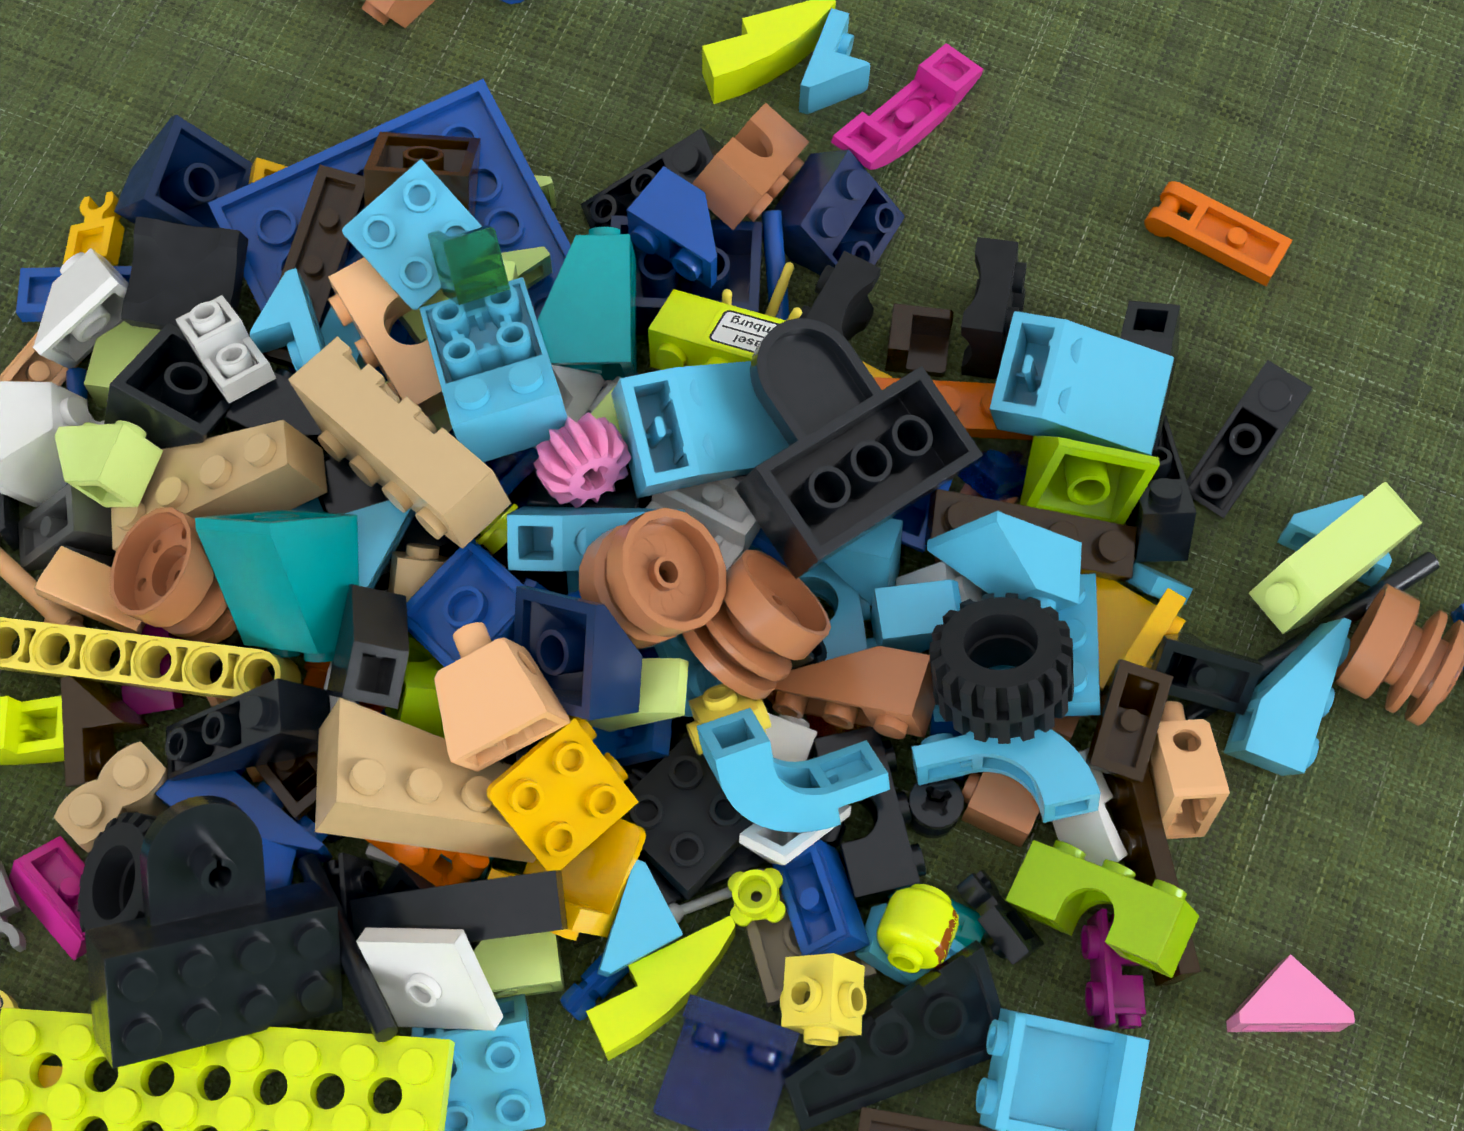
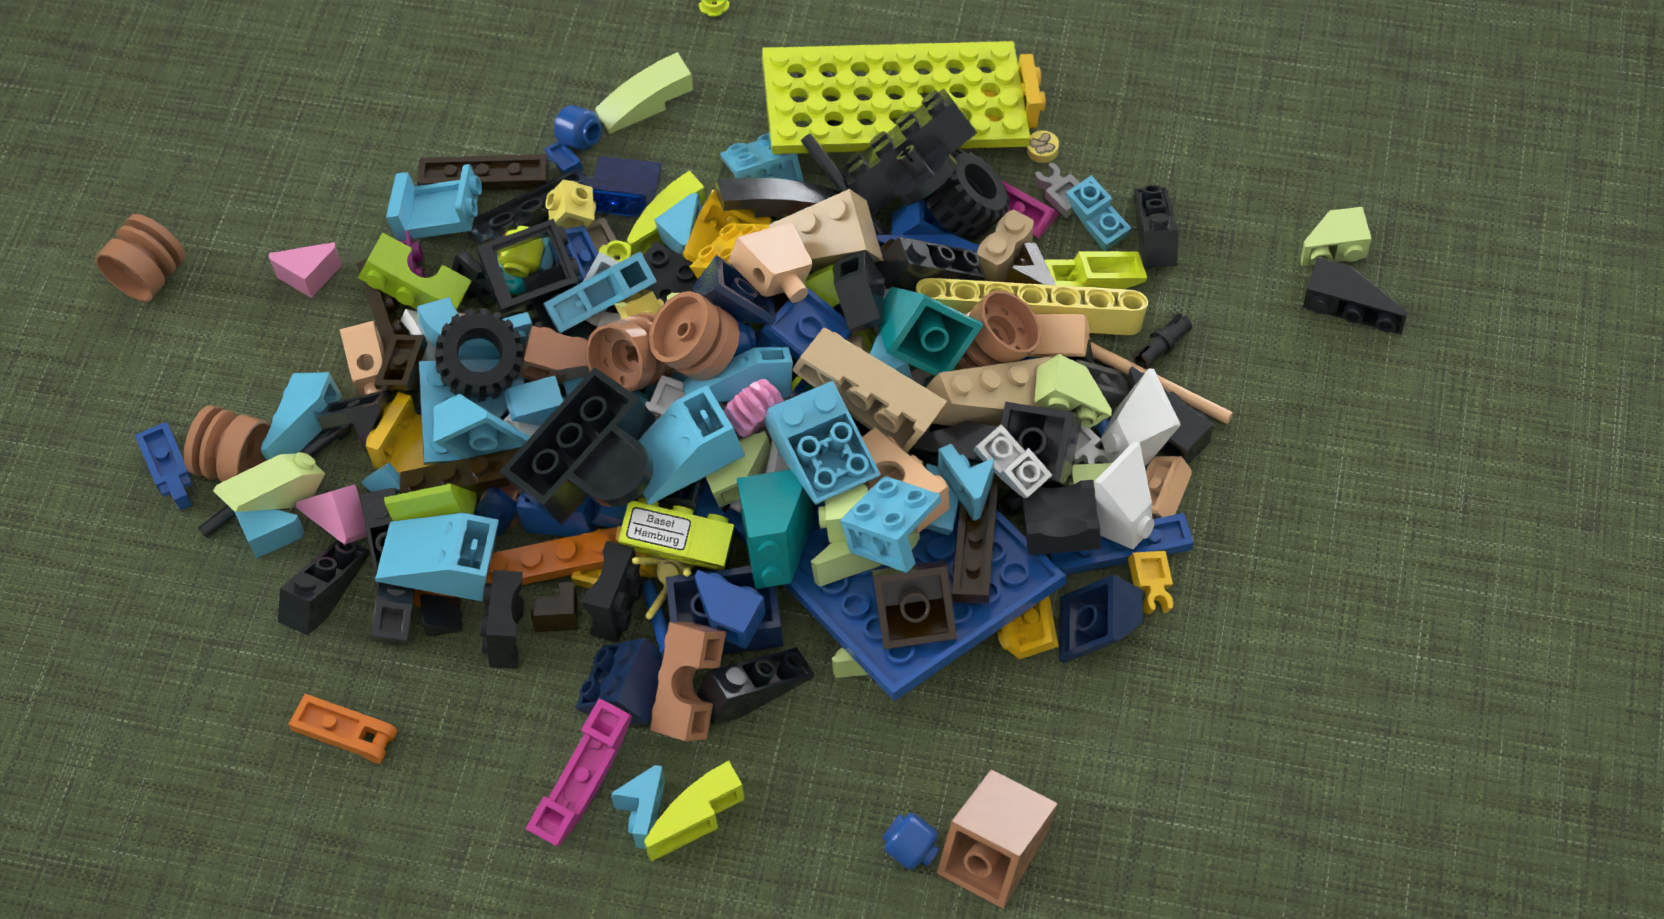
camera: 175 degrees right, 10 degrees down
(430, 978) = (790, 170): white plate -> none
(469, 264) = (848, 483): clear green panel -> none
(901, 818) = (495, 277): none -> black window
(1234, 539) = (337, 513): none -> bright pink slope

